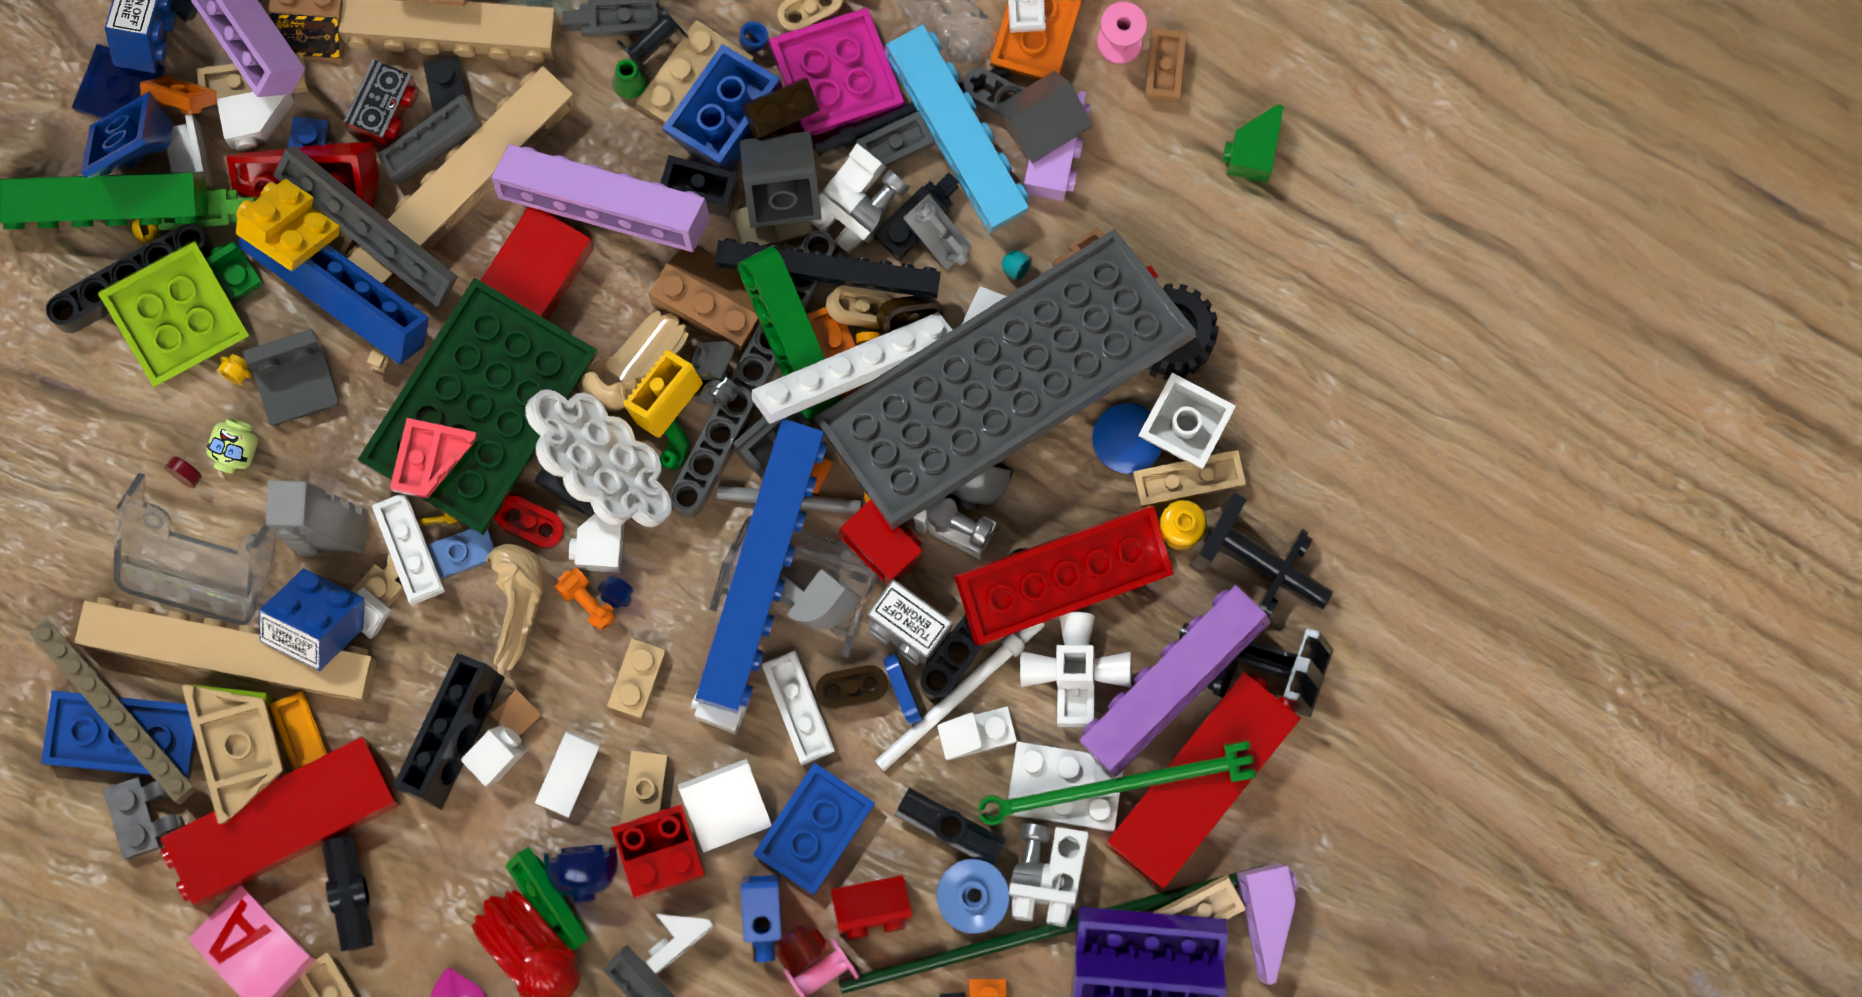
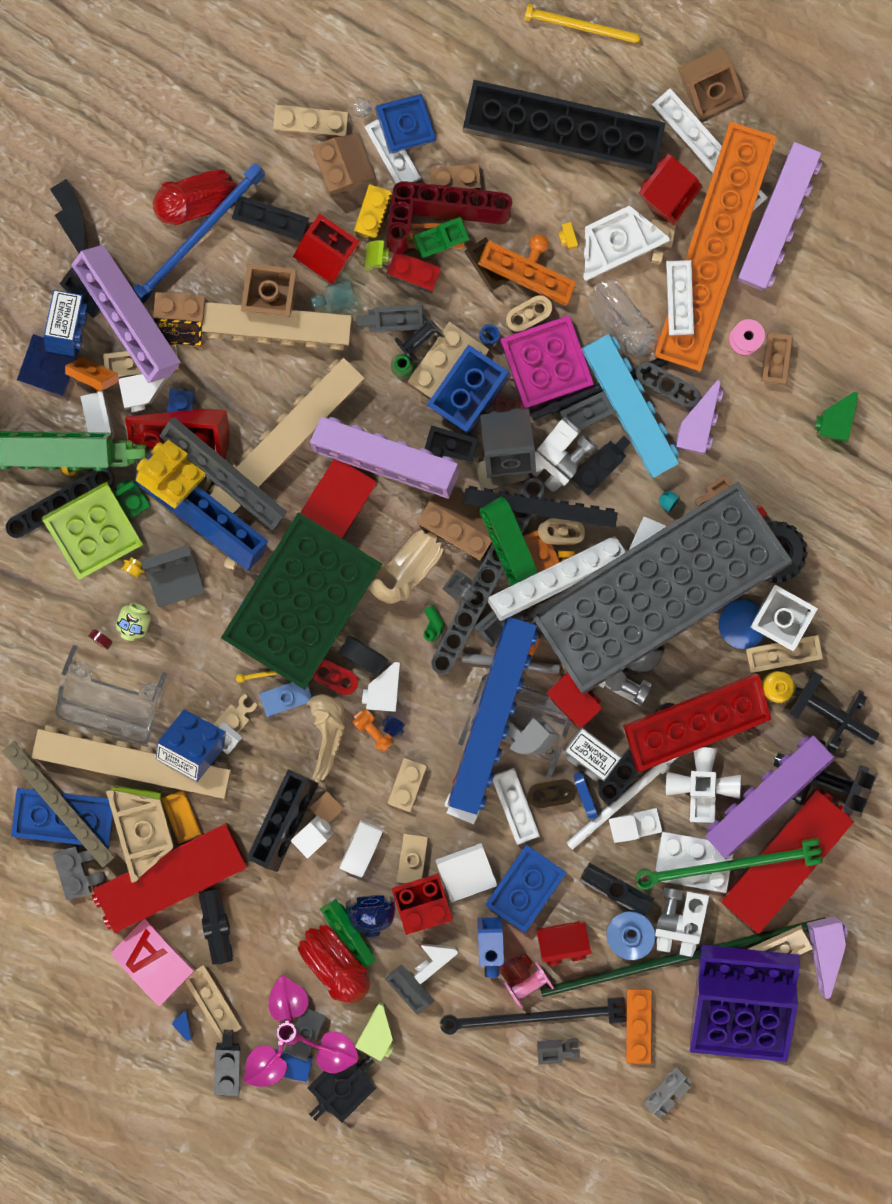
camera: 10 degrees right, 10 degrees up
(126, 137) = (57, 408): blue slope -> none
(314, 520) = (193, 679): light grey wedge -> none
(381, 103) = (231, 380): brick -> none
(408, 548) = (253, 695): white tile -> none
(428, 456) = (268, 638): coral wing -> none
(429, 139) = (265, 408): dark grey plate -> none
(444, 81) = (276, 372): black plate -> none
(598, 458) = (383, 640): white plate -> none
(663, 393) = (426, 593): yellow brick -> none
(711, 359) = (457, 569): dark grey plate -> none
(780, 107) = (508, 392): dark brown plate -> none
(906, 310) = (592, 536): dark brown plate -> none
(938, 233) = (616, 479): light grey hinge -> none
(1044, 116) = (691, 399): dark grey slope -> none

